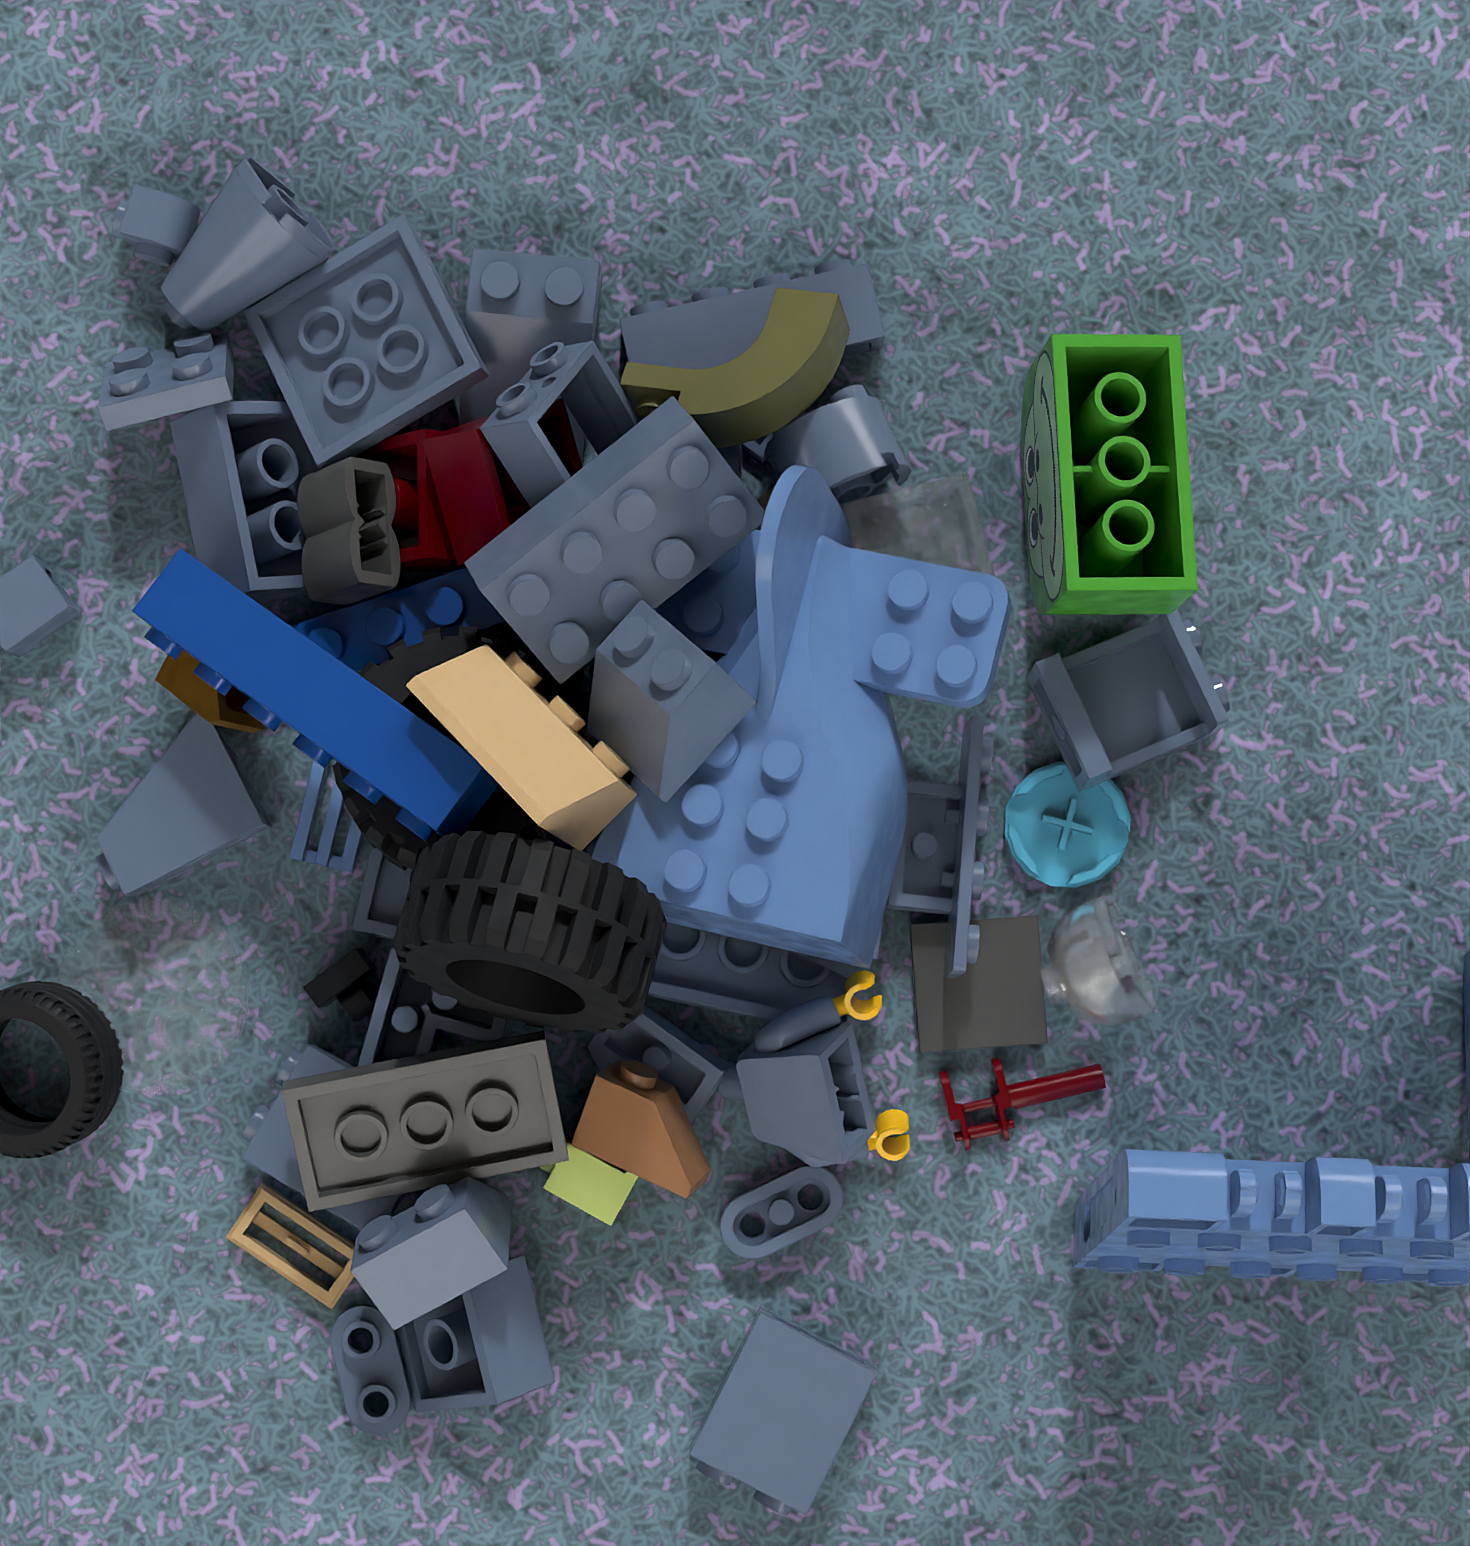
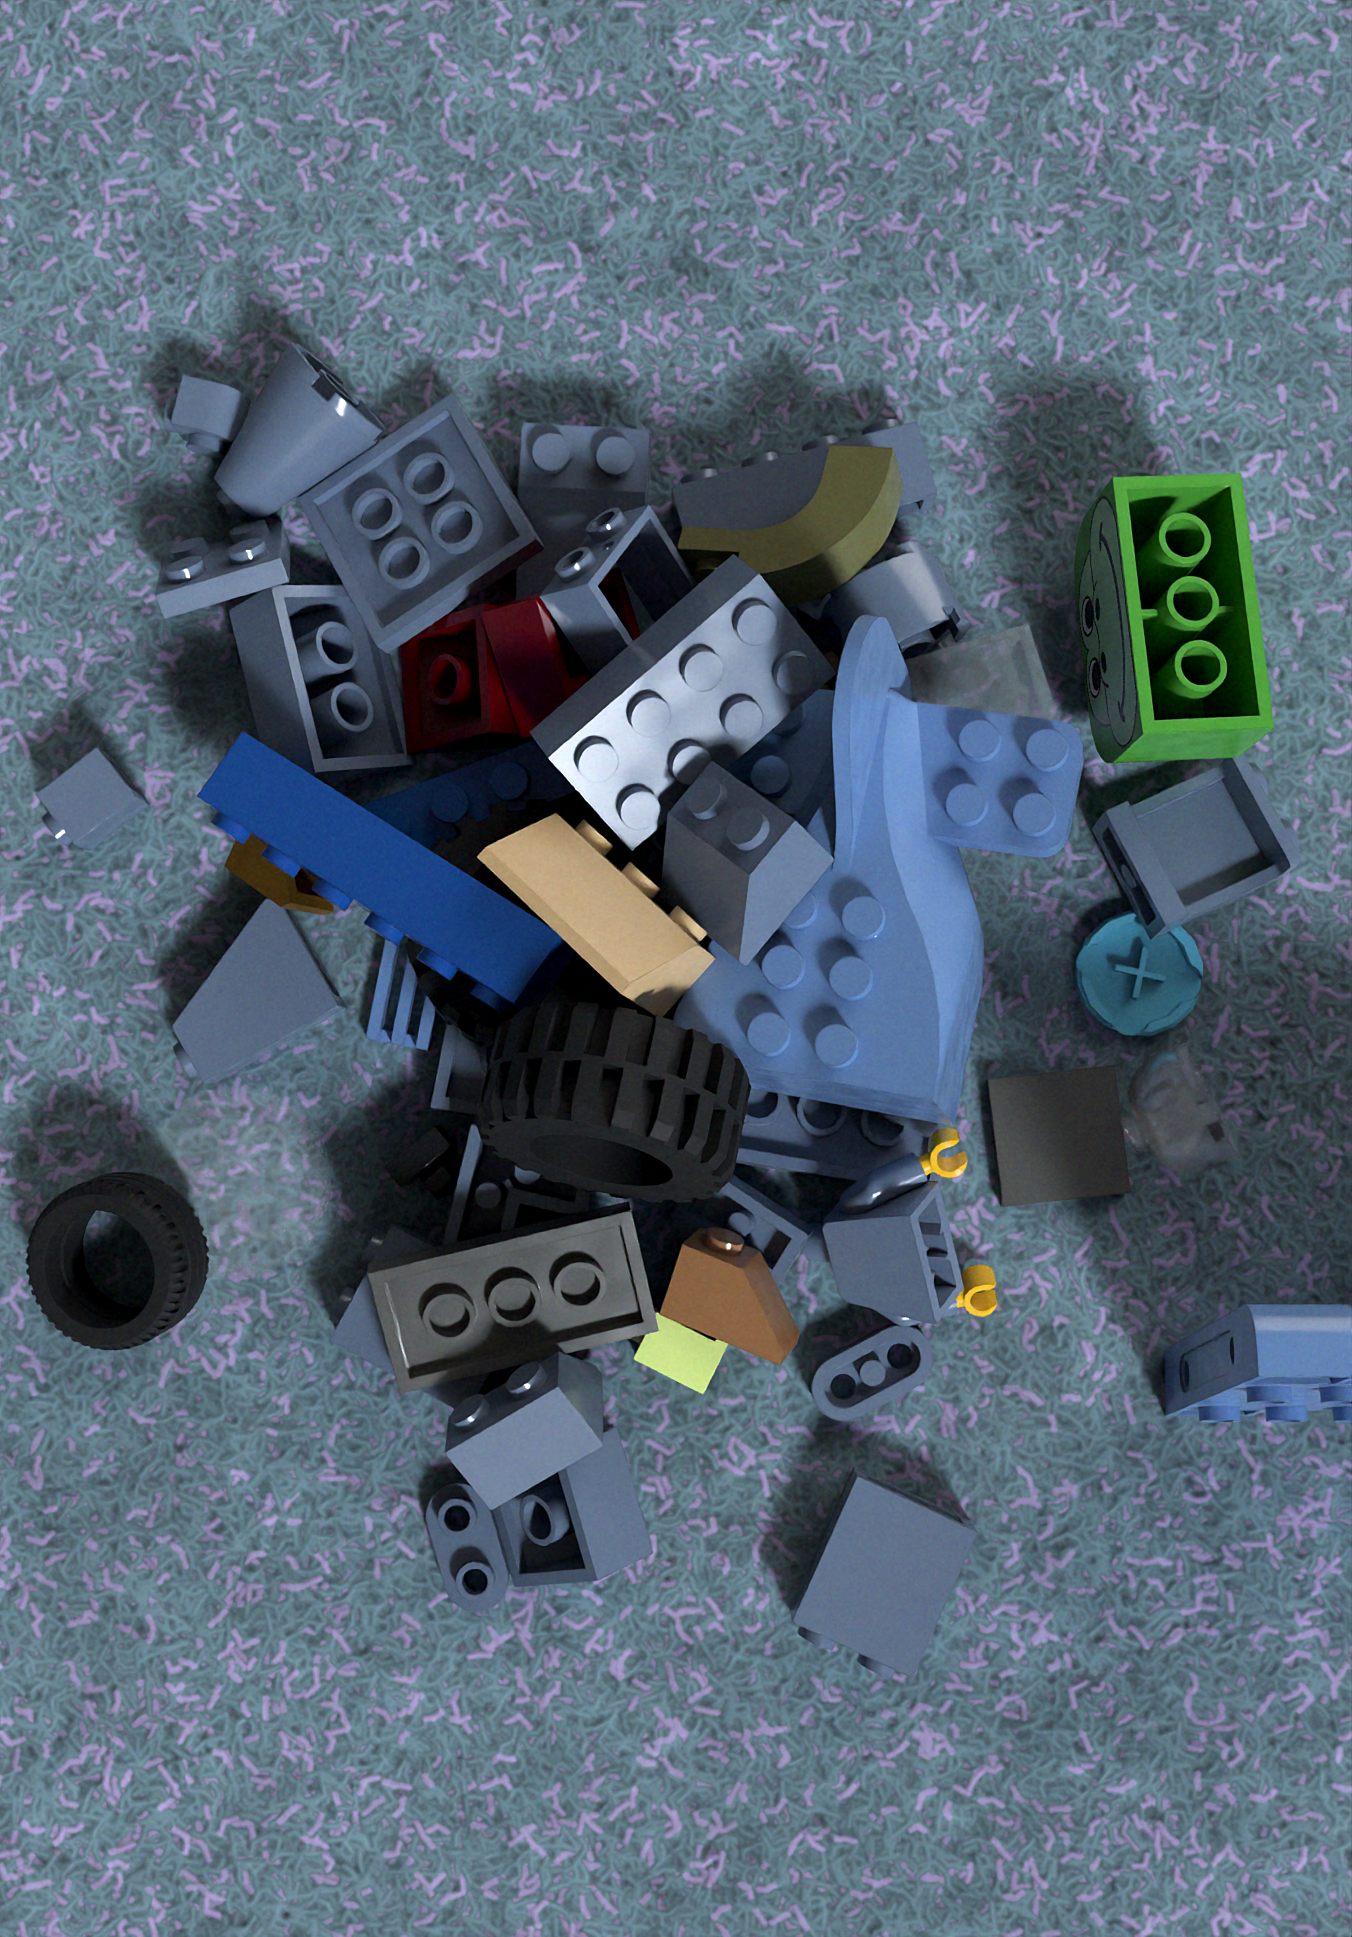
camera: 10 degrees right, 0 degrees up
(279, 1264) = (376, 1446): tan tile -> none
(349, 531) = (411, 710): dark grey brick -> none
(938, 849) = (1016, 1003): sand blue bracket -> none
(1017, 1096) = (1101, 1246): dark red piece -> none

